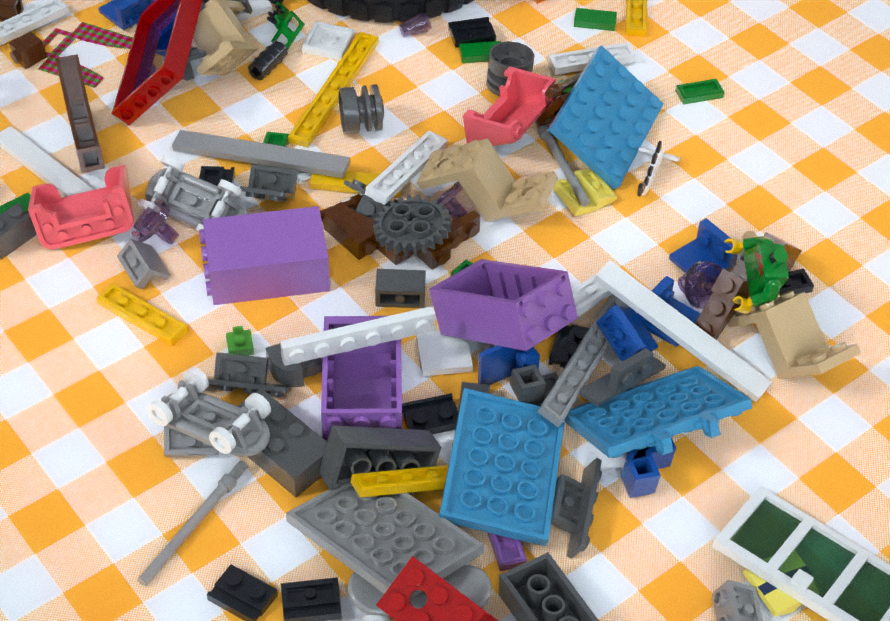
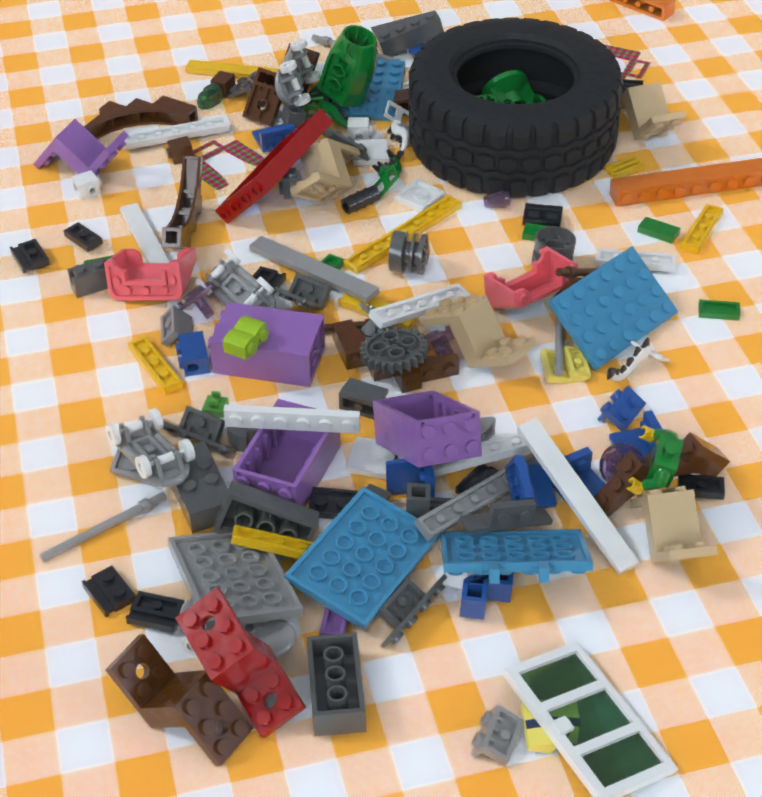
camera: 25 degrees right, 5 degrees down
(182, 289) = (193, 354): none -> blue brick
(252, 256) = (245, 337): none -> lime brick
(666, 223) = (622, 408): none -> blue bracket

